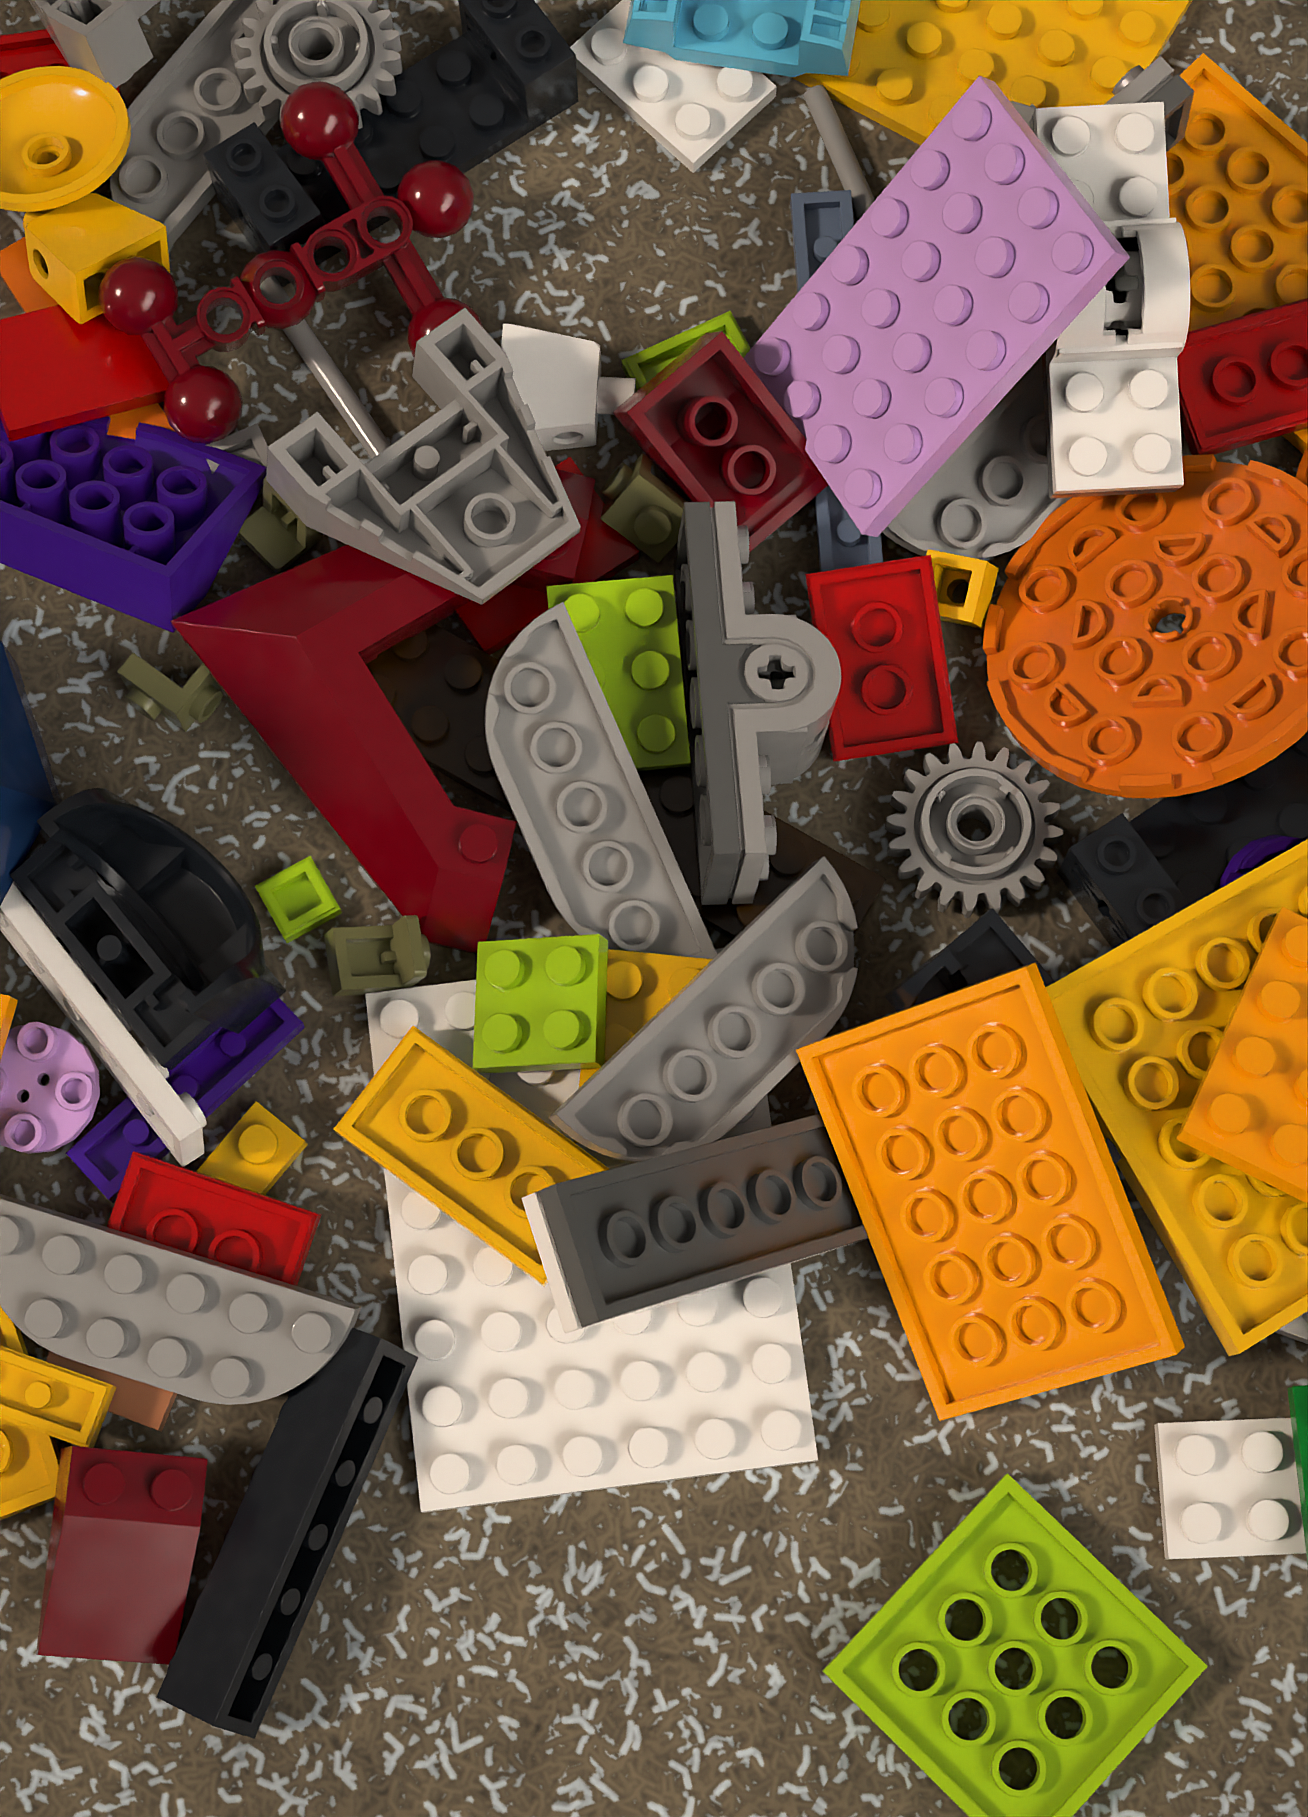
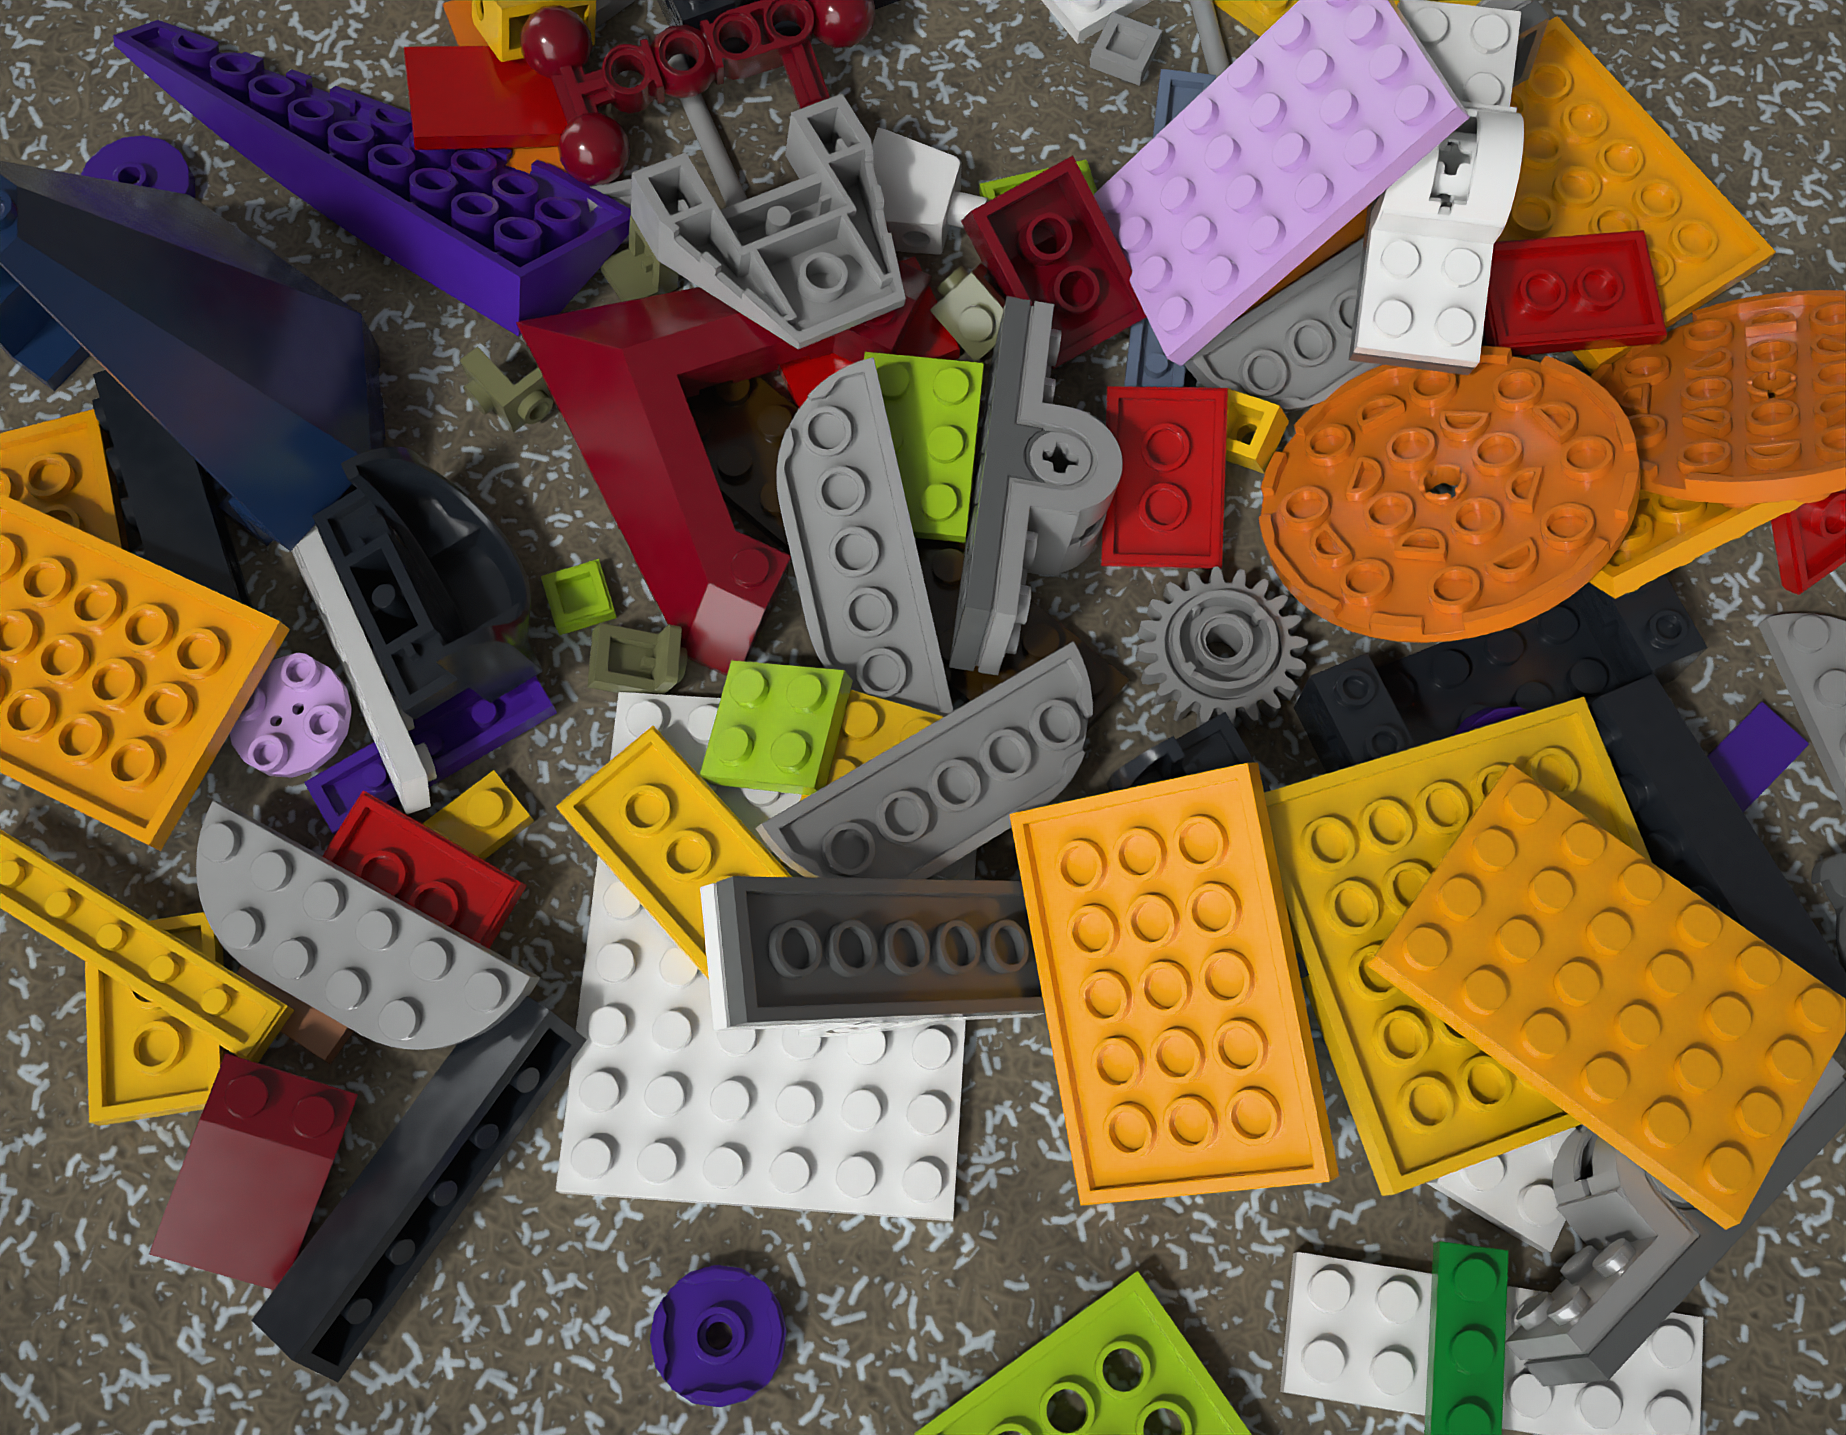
camera: 10 degrees right, 5 degrees down
(576, 1612) = (682, 1329): none -> dark purple plate
(747, 174) = (1125, 48): none -> light grey plate

